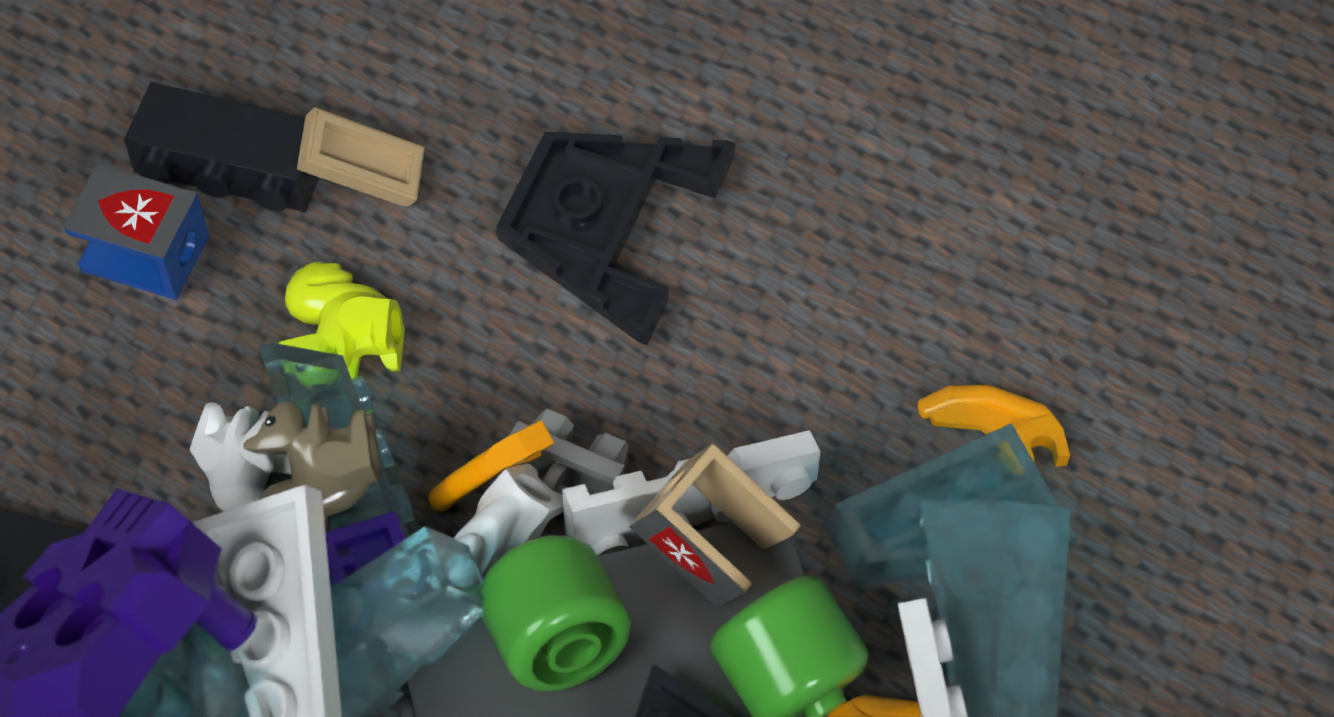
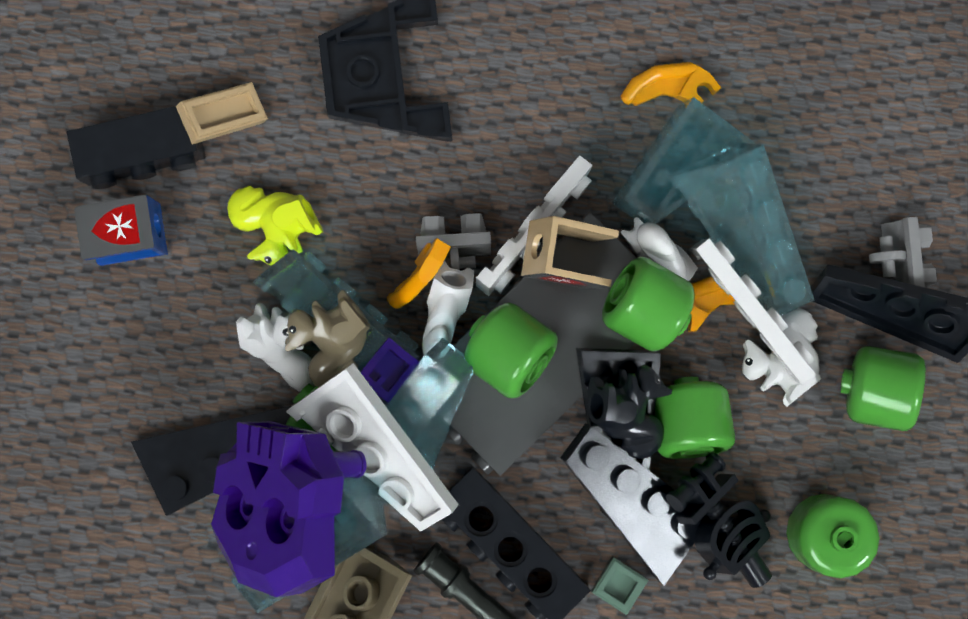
camera: 30 degrees left, 25 degrees up
(851, 585) = (654, 243): none -> white animal

